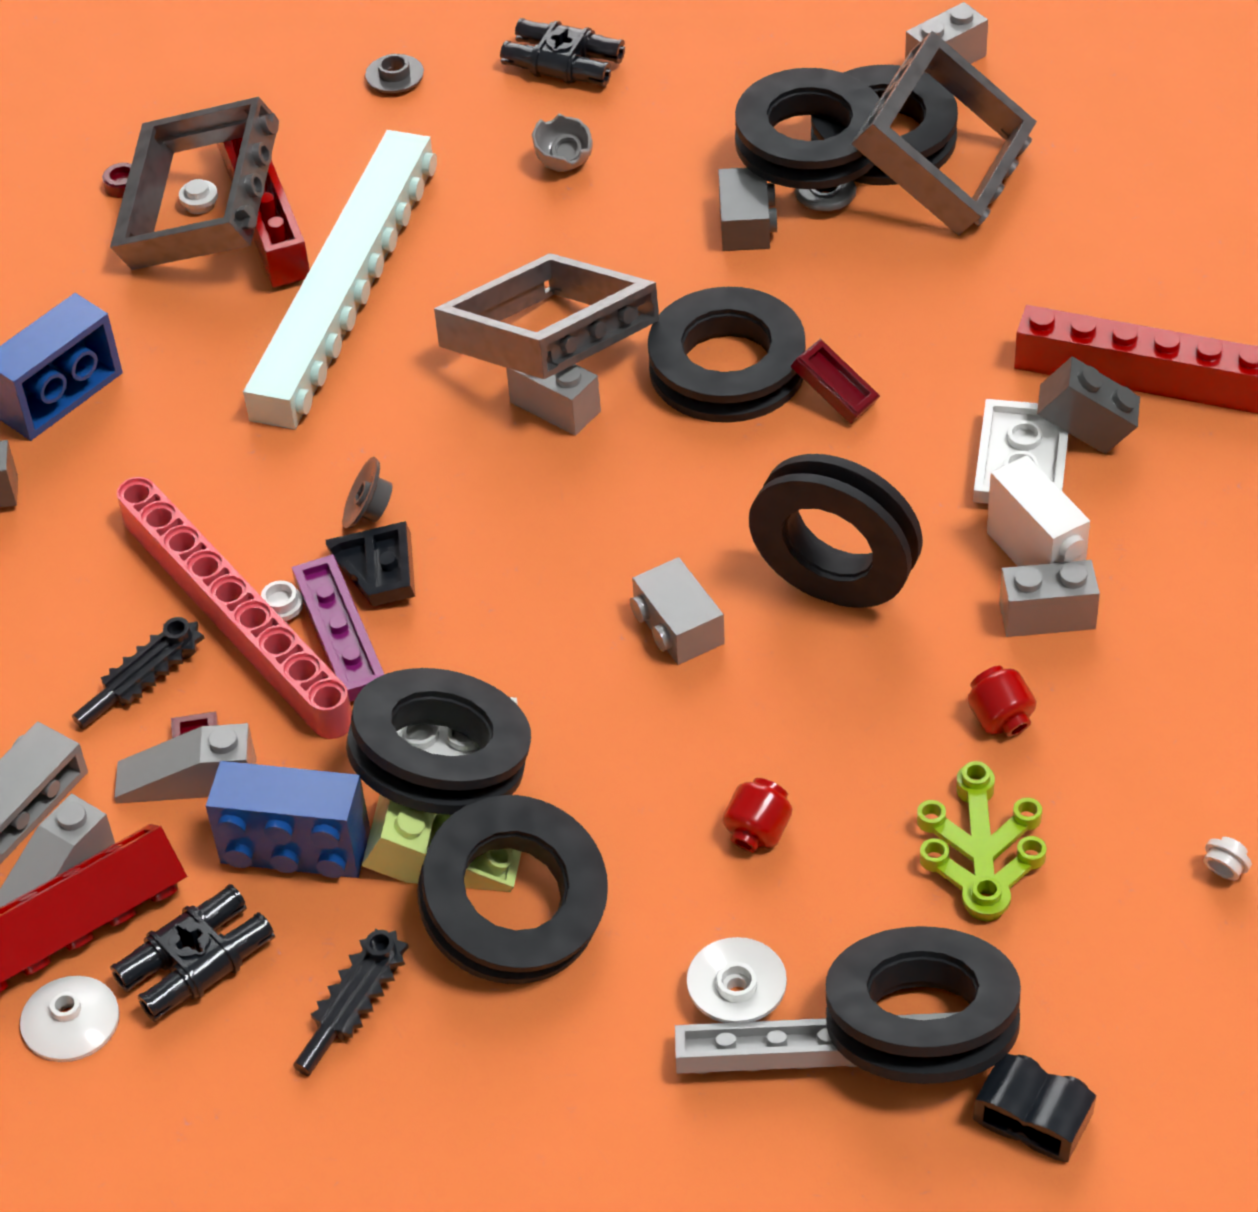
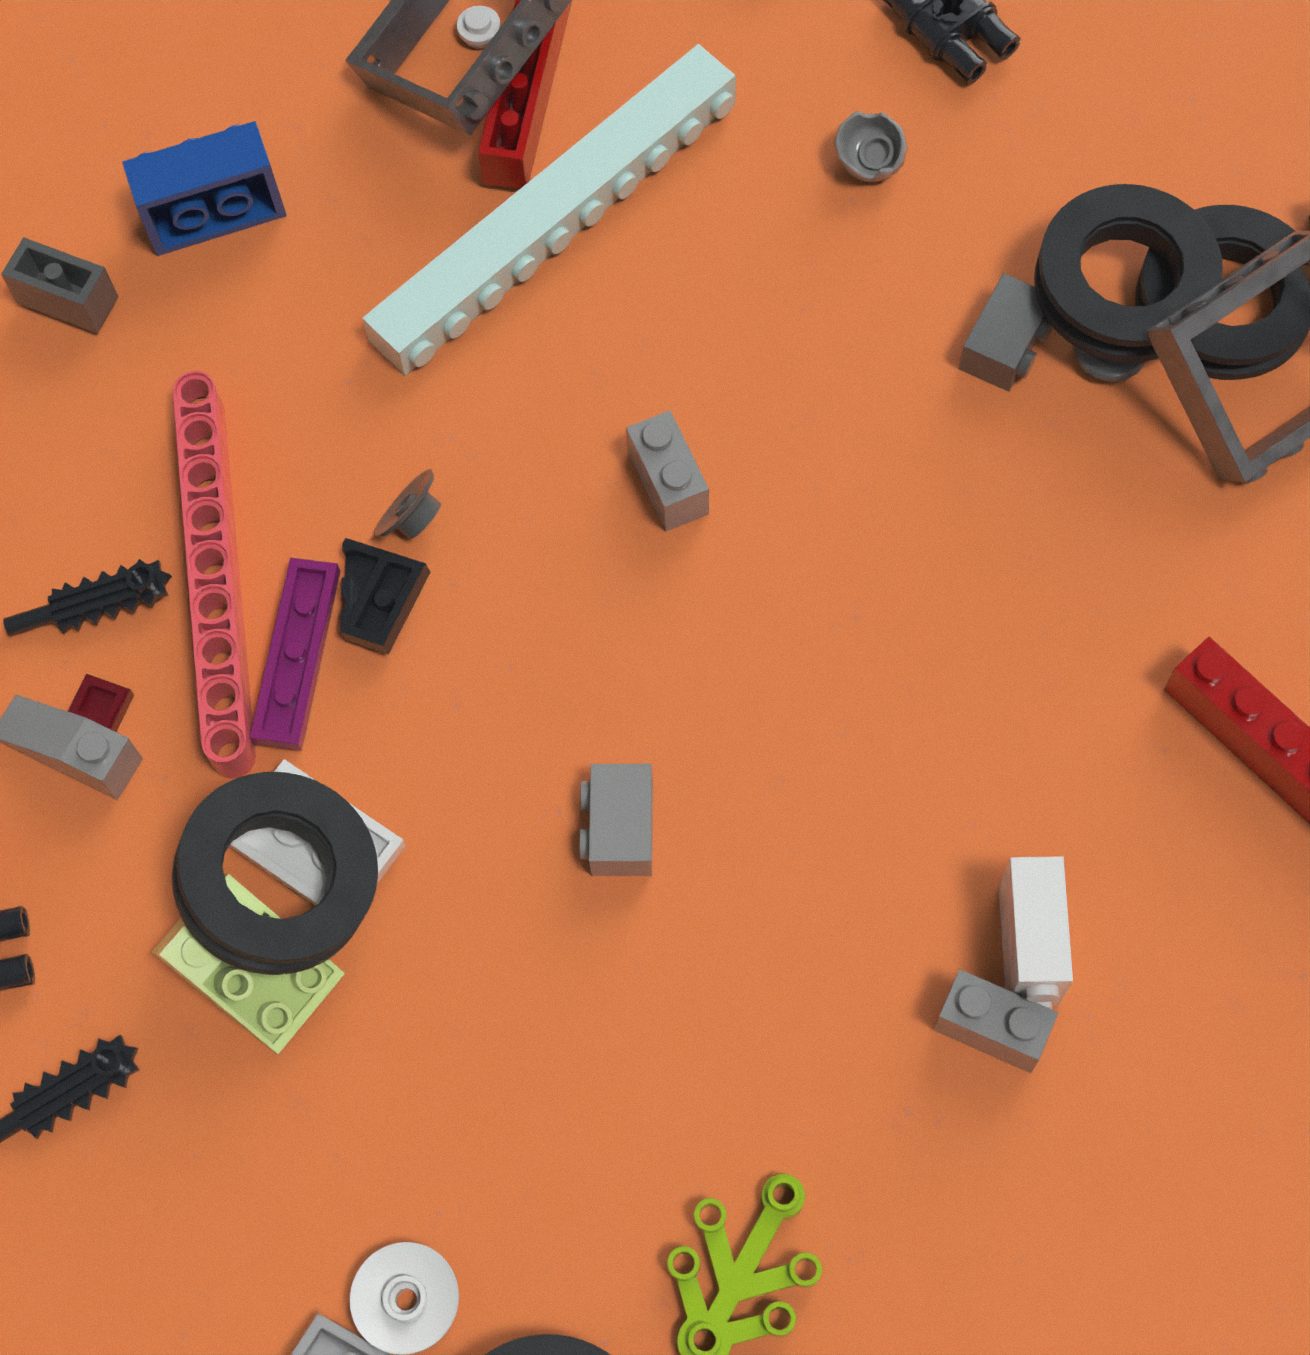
camera: 30 degrees right, 20 degrees up
(283, 598) = (261, 589): white plate -> none
(288, 819) = (99, 871): blue brick -> none
(496, 951) = (204, 1136): black tyre -> none
(617, 309) = (711, 437): flat silver window -> none
(731, 394) = (871, 454): black tyre -> none
(757, 814) = (543, 1115): red head -> none
(835, 381) = (955, 616): dark red tile -> none
(855, 496) = (807, 840): black tyre -> none
(1001, 701) = (866, 1121): red head -> none
(1013, 432) = (1094, 813): white plate -> none
(1088, 405) = (1190, 805): dark grey brick -> none

